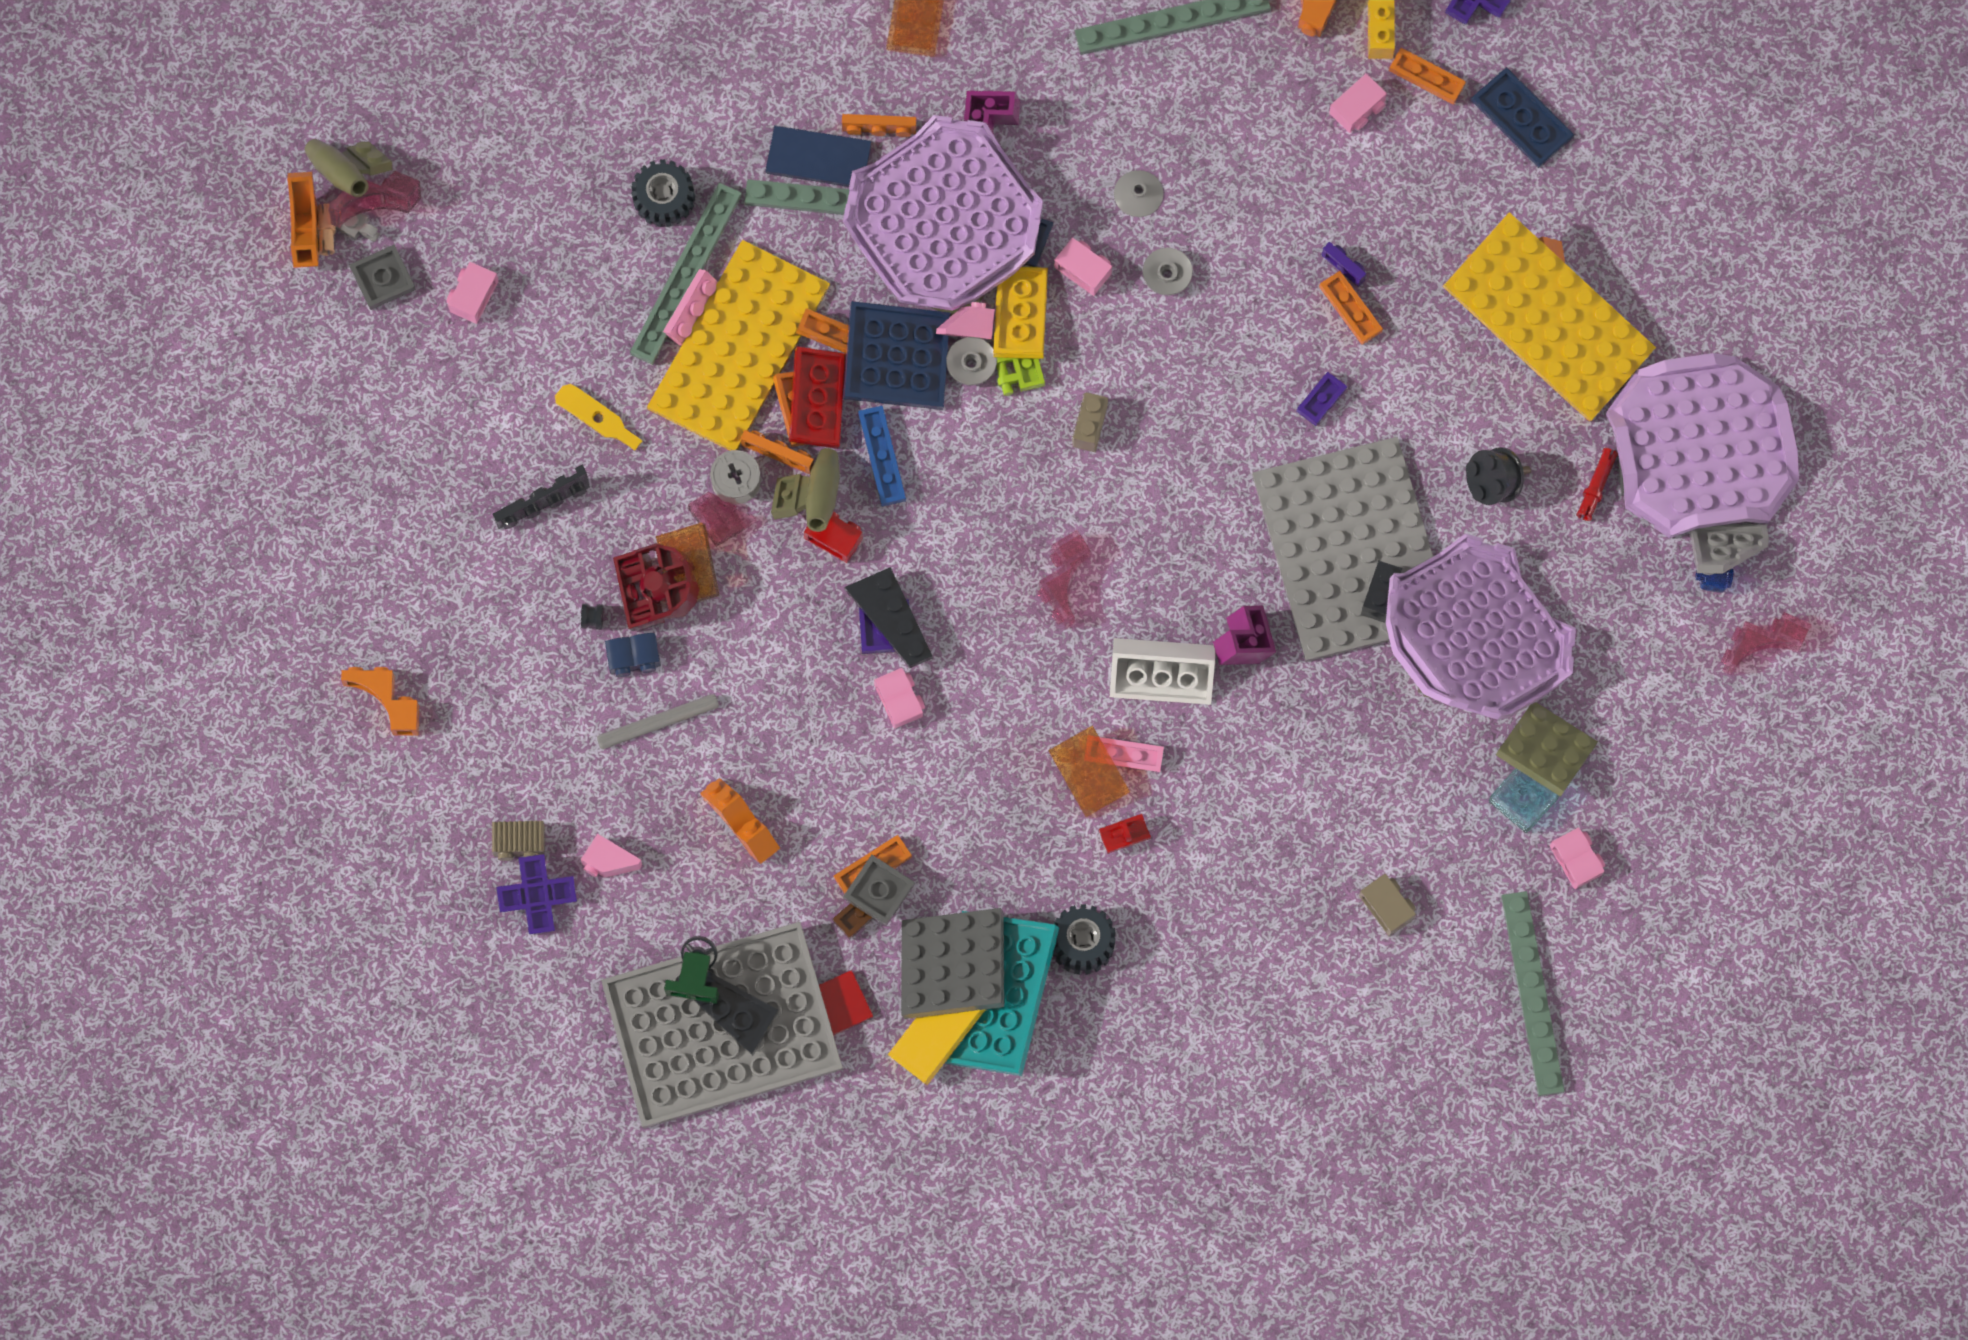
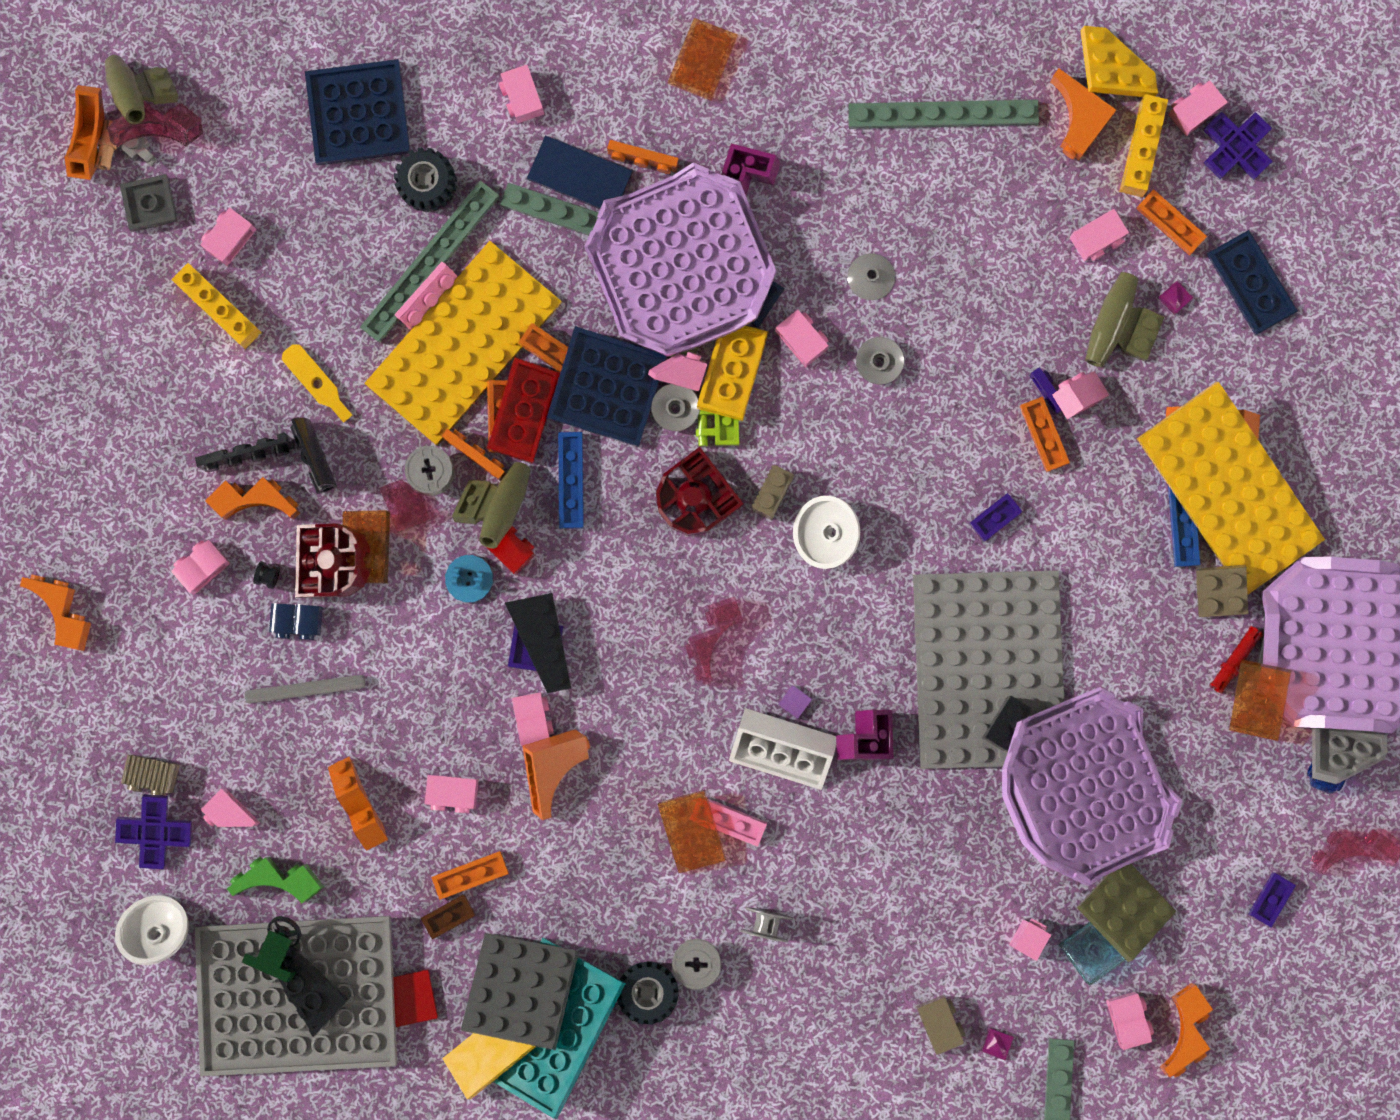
camera: 20 degrees right, 10 degrees up
(477, 362) = (216, 306): none -> yellow brick
(521, 622) = (200, 566): none -> bright pink brick
(558, 990) = (145, 921): none -> white dish
(572, 536) = (229, 498): none -> orange arch
(576, 143) = (357, 112): none -> dark blue plate
(601, 472) = (313, 455): none -> black panel
(660, 911) = (300, 881): none -> bright green arch
(740, 89) = (522, 94): none -> bright pink piece
(812, 575) = (480, 580): none -> dark azure plate
(834, 788) = (451, 792): none -> bright pink piece
(879, 890) = (468, 903): dark grey plate -> none
(926, 736) = (548, 763): none -> orange arch
(1009, 438) = (700, 497): none -> dark red connector
(1124, 833) = (710, 900): red hips -> none
(1131, 887) = (696, 978): none -> light grey piece
(1142, 443) = (814, 532): none -> white dish
(1162, 623) = (795, 701): none -> medium lavender tile
(1187, 842) = (766, 924): none -> light grey piece
(1376, 258) = (1080, 393): none -> bright pink piece
(1405, 185) = (1122, 324): none -> olive plate
(1449, 148) = (1175, 297): none -> magenta tile
(1450, 913) = (997, 1044): none -> magenta tile
(1457, 797) = (1030, 938): none -> bright pink piece
(1495, 476) = (1142, 634): black wheel -> none
(1514, 373) = (1184, 535): none -> blue plate
(1565, 419) = (1222, 591): none -> dark tan plate
(1629, 514) = (1260, 700): none -> clear orange plate
(1637, 830) = (1190, 1046): none -> orange arch
(1690, 709) = (1271, 899): none -> dark purple plate

